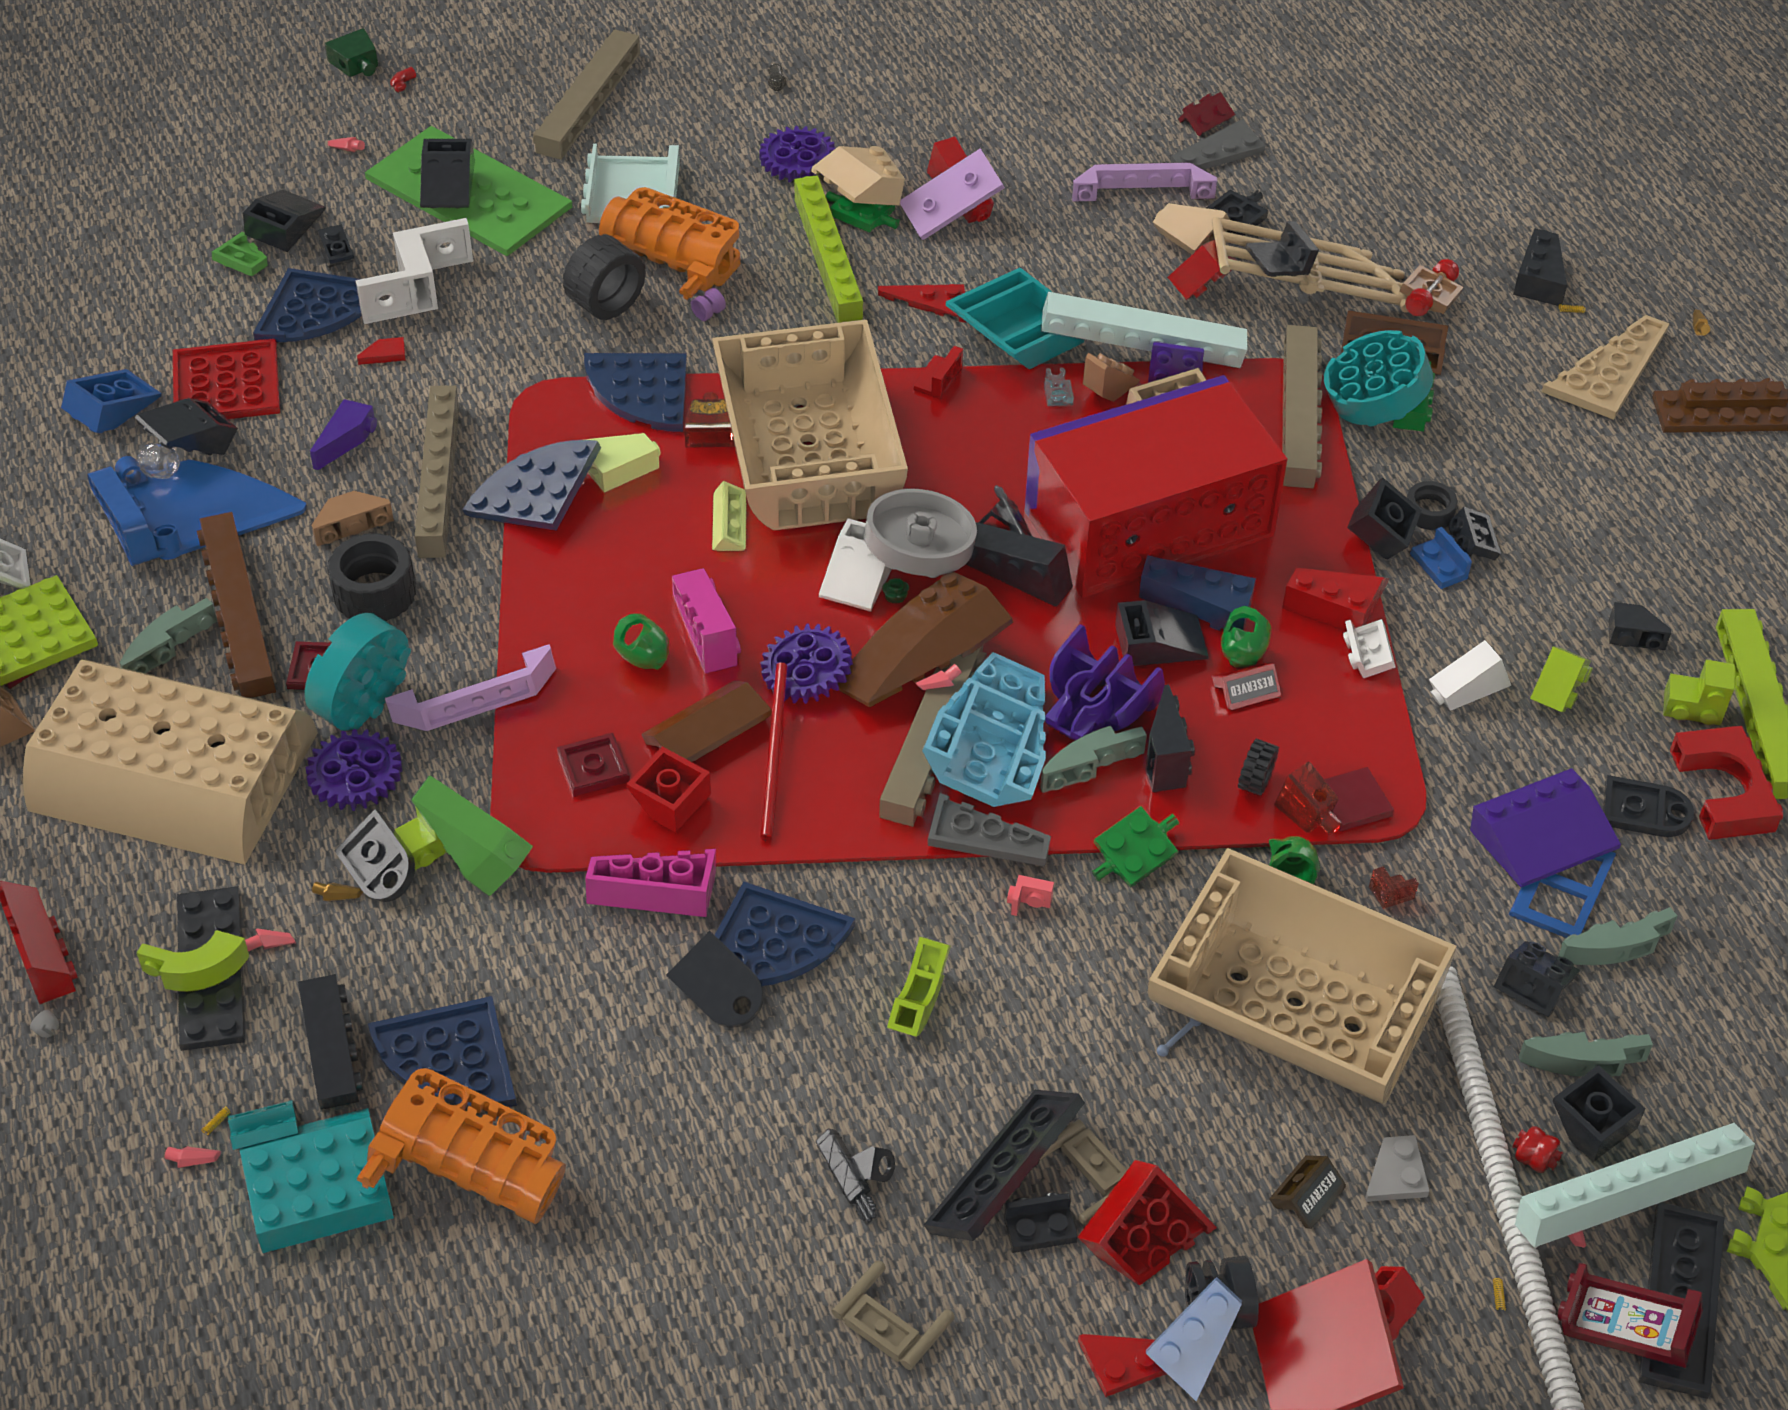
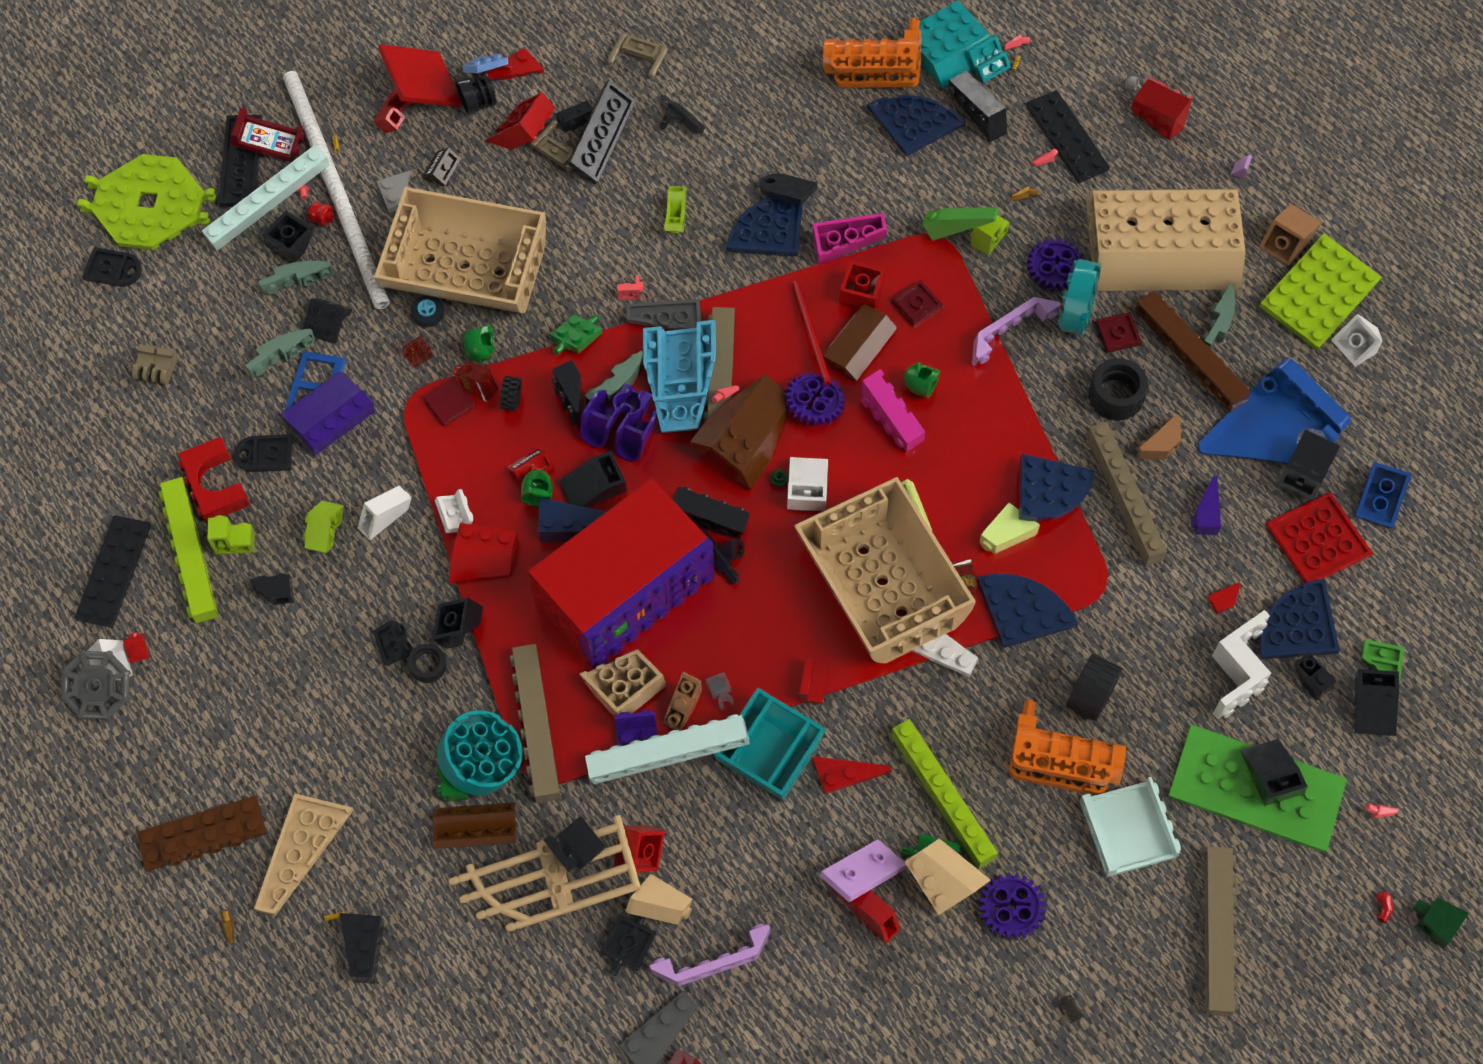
camera: 165 degrees right, 15 degrees up
(197, 968) = (1070, 115): lime arch -> none
(375, 855) = (1010, 209): tile -> none
(706, 305) = (1011, 708): medium lavender wheel -> none
(920, 532) = (774, 507): light grey piece -> none
(1432, 288) = (450, 886): plate -> none
(1442, 559) = (414, 615): blue bracket -> none

